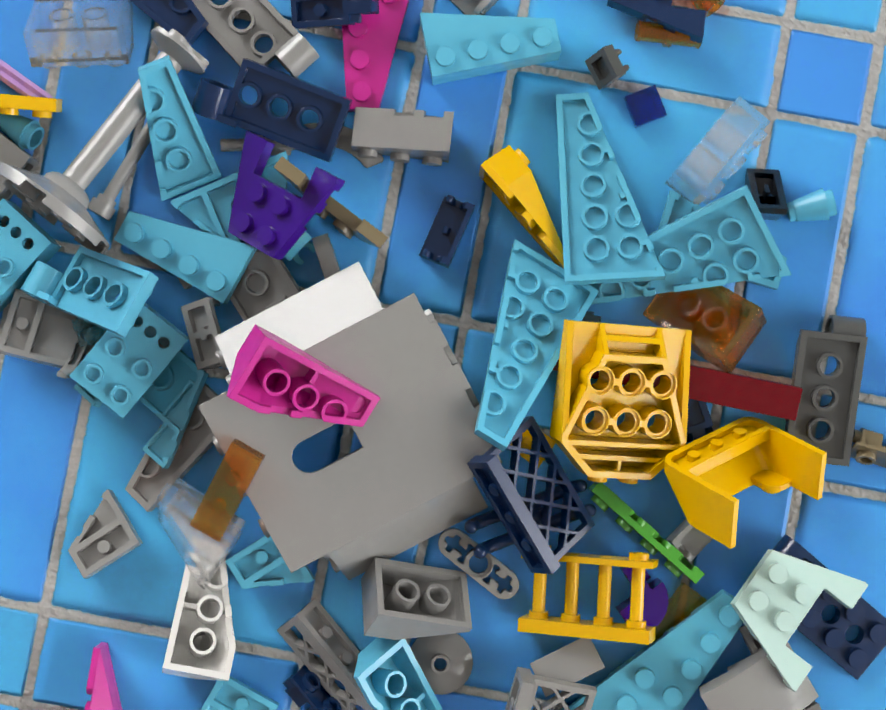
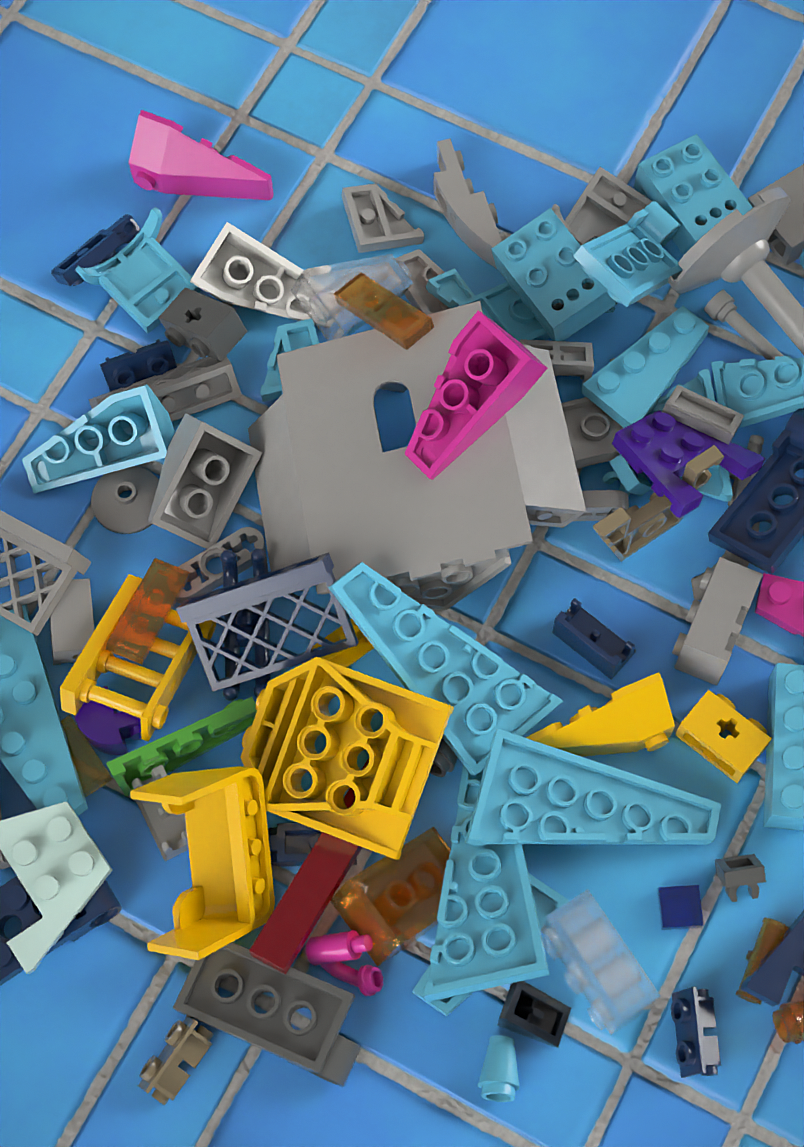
camera: 110 degrees right, 20 degrees down
(75, 454) = (465, 211): none -> light grey slope
(221, 193) = (703, 414): none -> light grey tile
(264, 654) = (202, 325): none -> dark grey brick
(504, 87) = (735, 752): none -> yellow brick
(548, 601) = (147, 611): none -> clear orange tile
(751, 67) = (693, 1012): none -> dark blue hinge
(768, 350) = (335, 948): none -> dark pink plant

